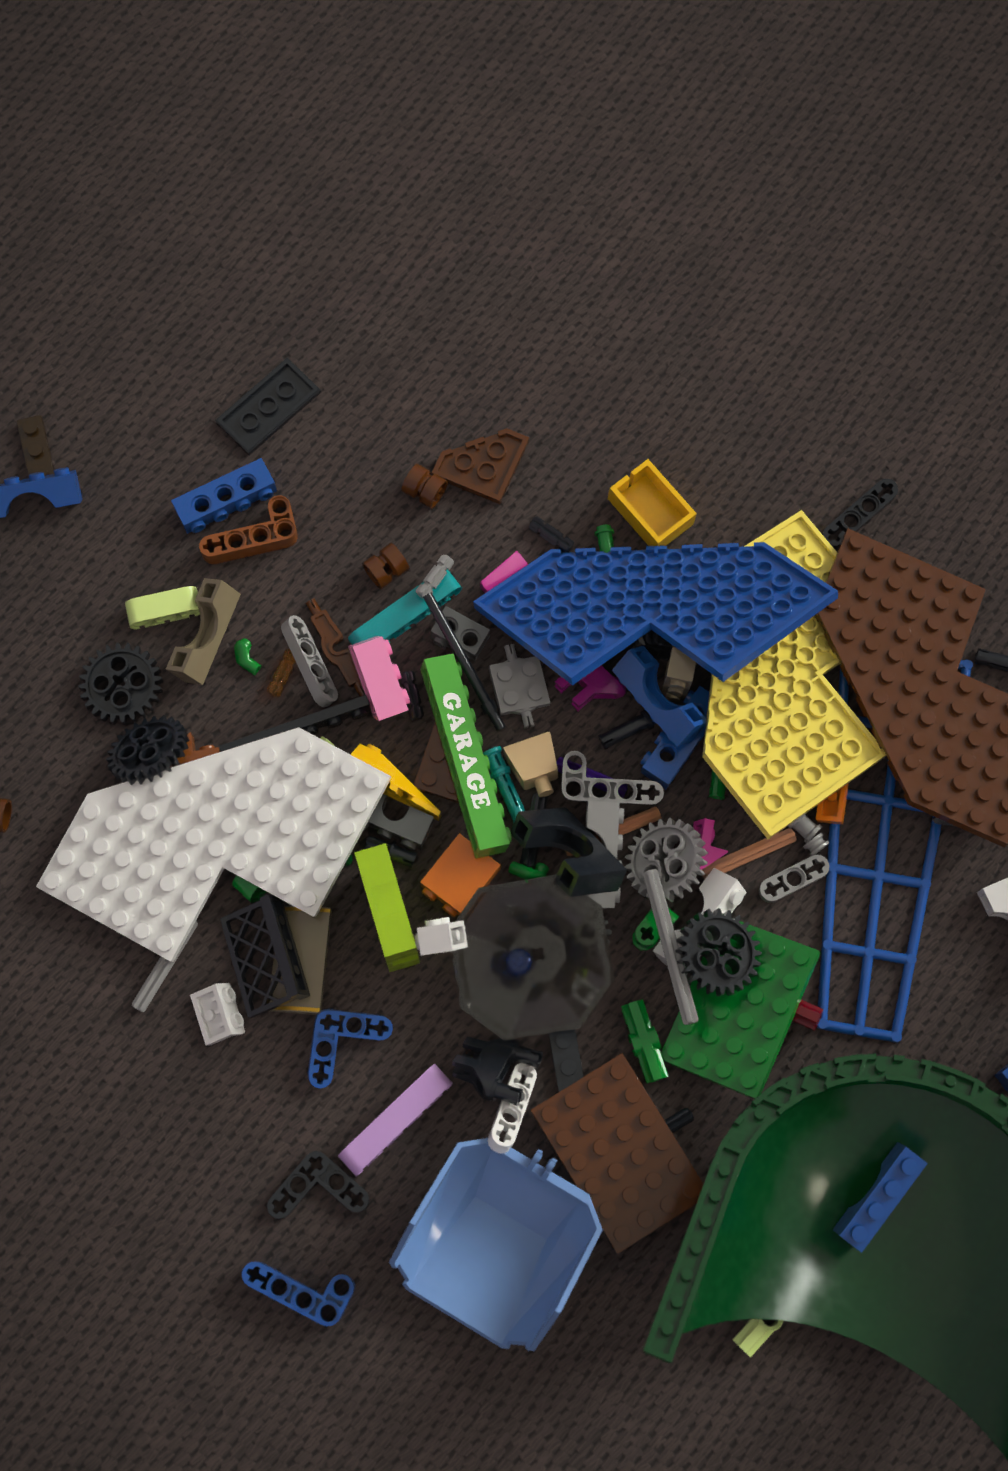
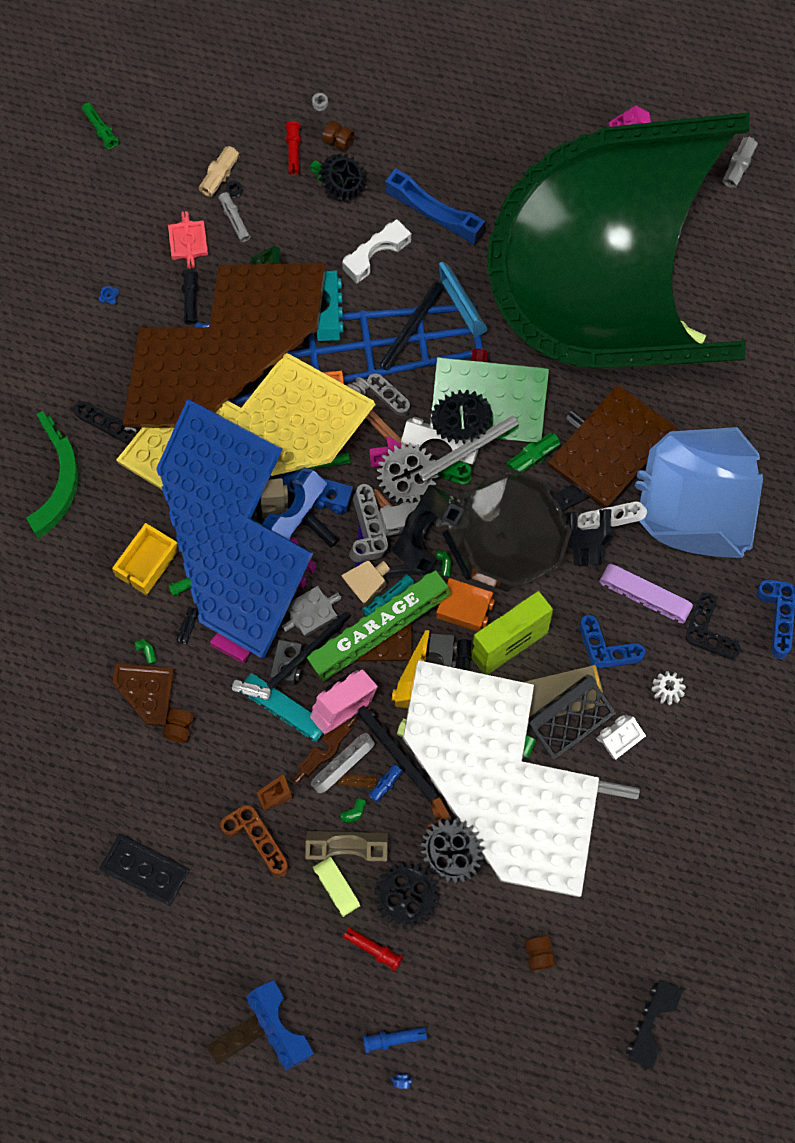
camera: 105 degrees left, 5 degrees down
(65, 634) = (382, 953): none -> red pin
(229, 484) = (206, 854): blue brick -> none
(262, 1091) = (668, 695): none -> white gear
(266, 703) = (385, 783): none -> blue pin
(301, 574) = (274, 793): none -> dark orange slope
(391, 559) = (252, 733): reddish brown wheel -> none
(441, 936) = (523, 582): white brick -> none
(518, 962) = (512, 546): clear blue piece -> none
(534, 480) = (149, 653): none -> green arm
(795, 447) = (62, 497): none -> green arch
(868, 1215) = (561, 276): blue arch -> none
(887, 941) = (411, 325): none -> black axle
(903, 1020) = (461, 300): none -> dark azure slope
(919, 829) = (329, 324): none -> teal arch

